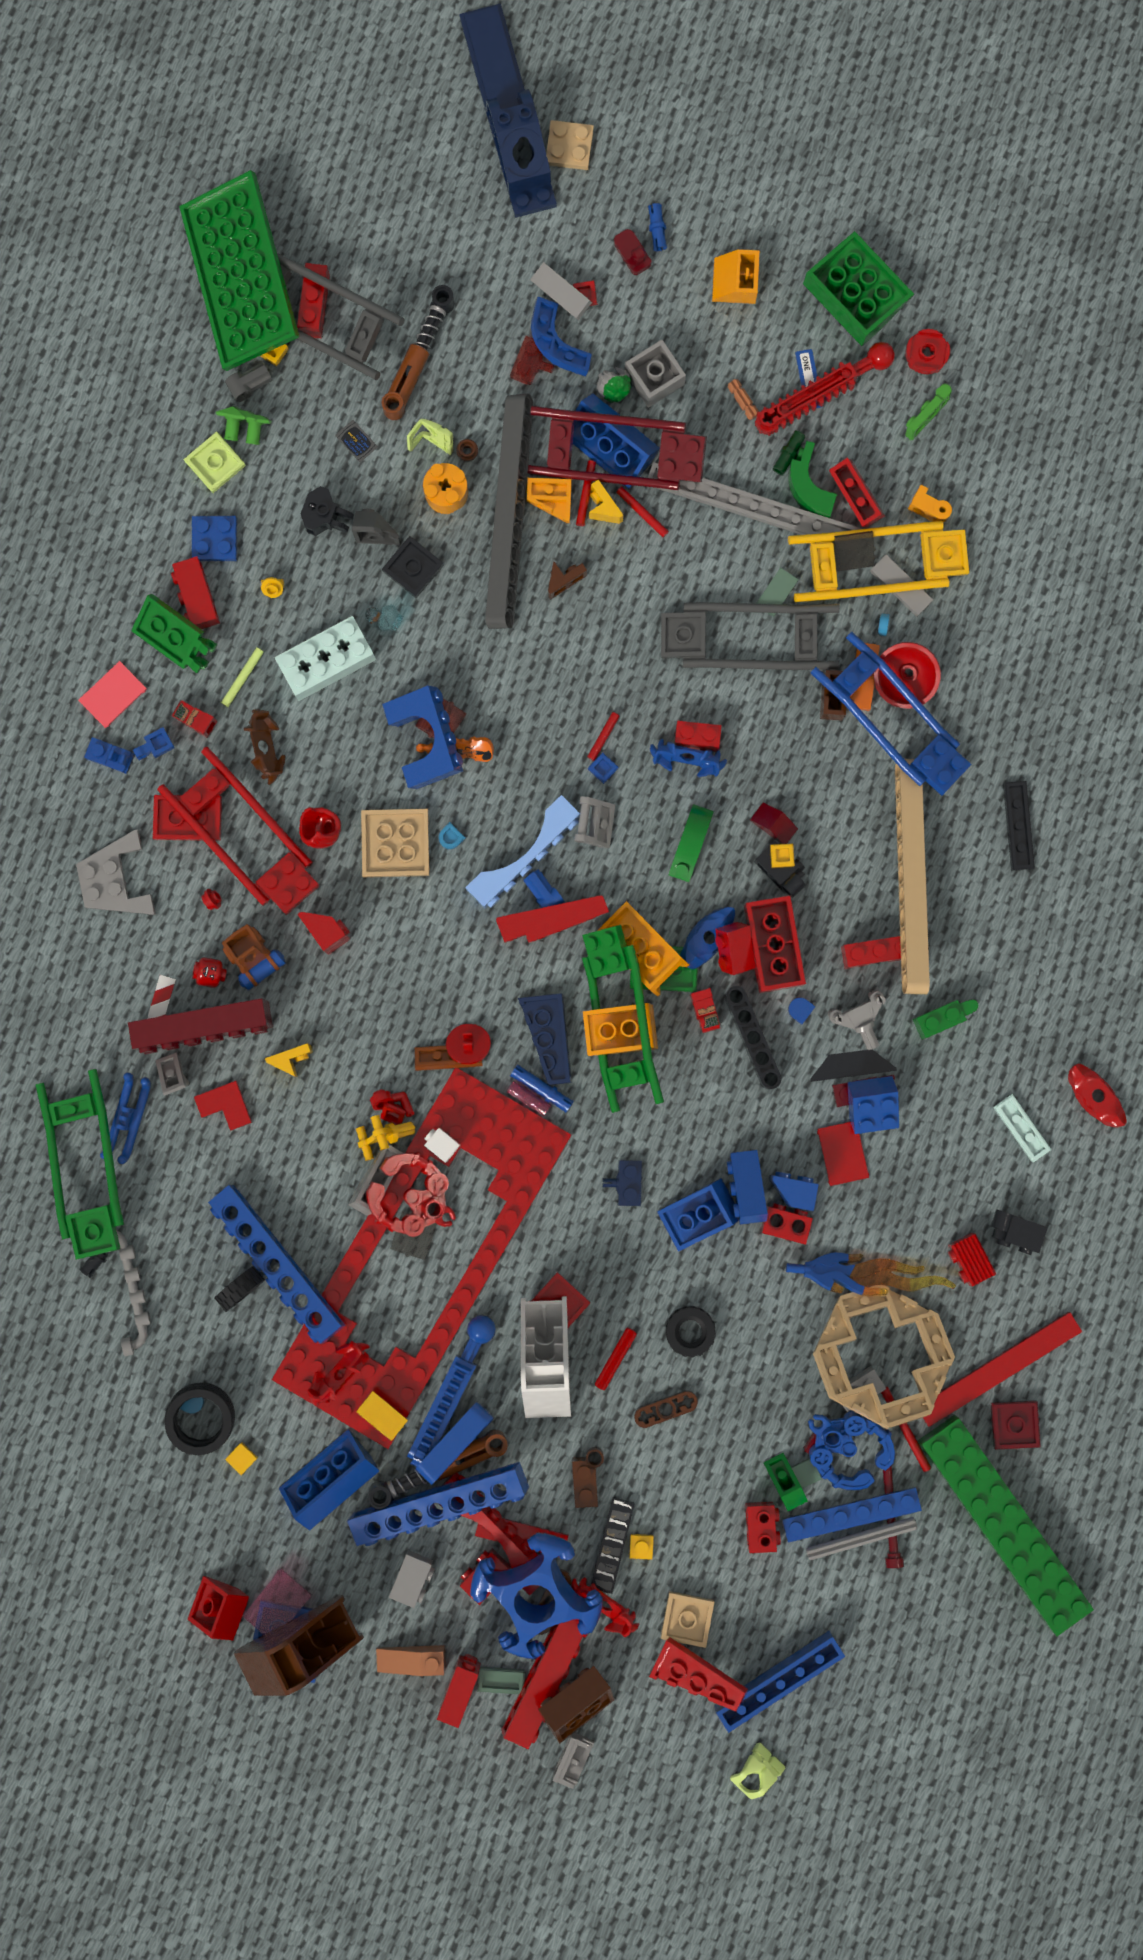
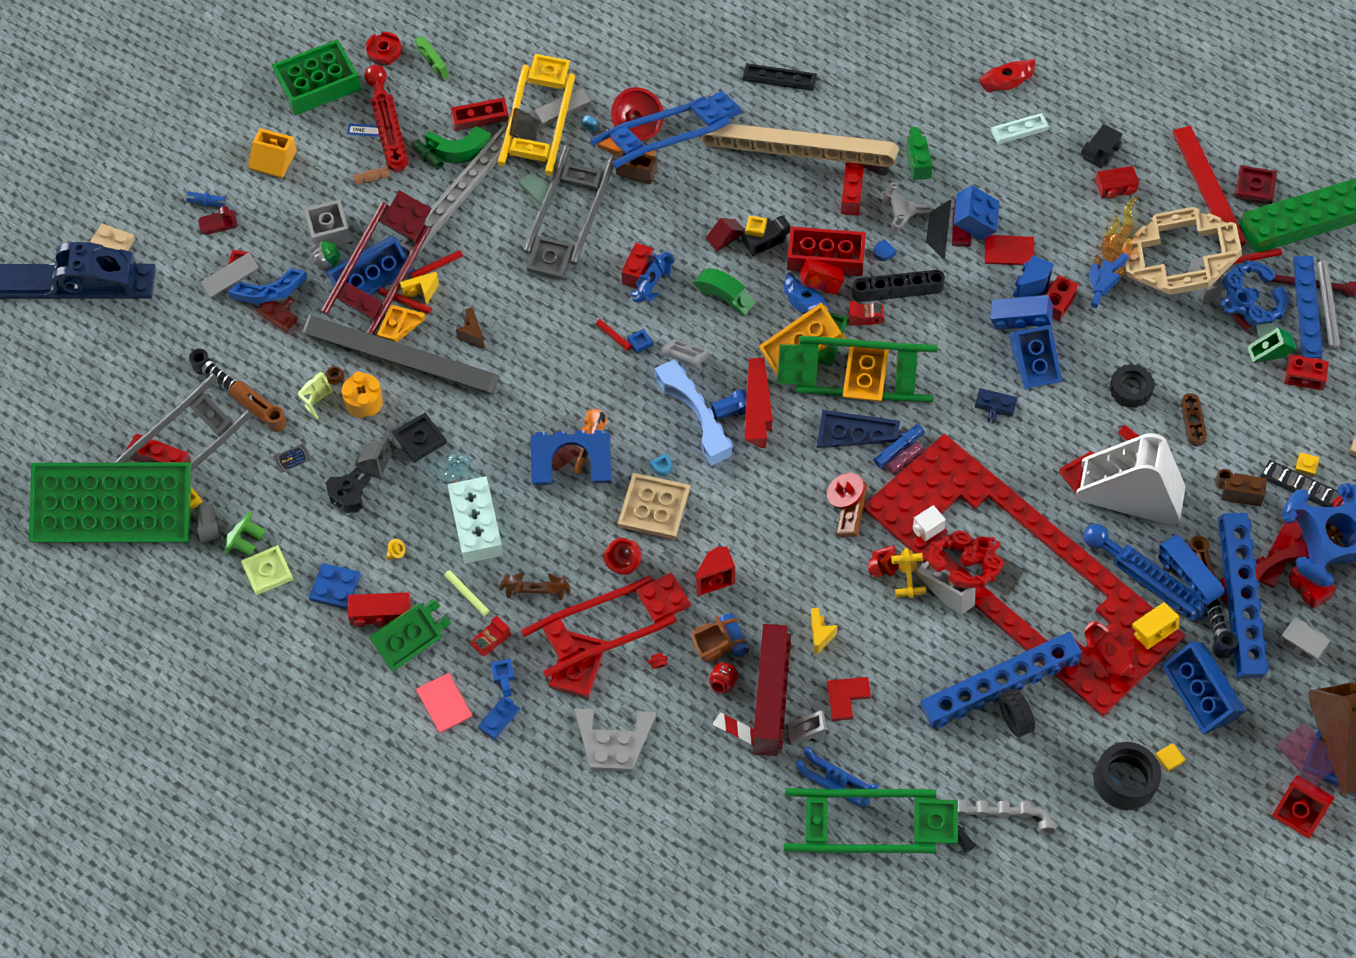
camera: 75 degrees left, 25 degrees down
(929, 507) = (506, 74): light orange leg -> none

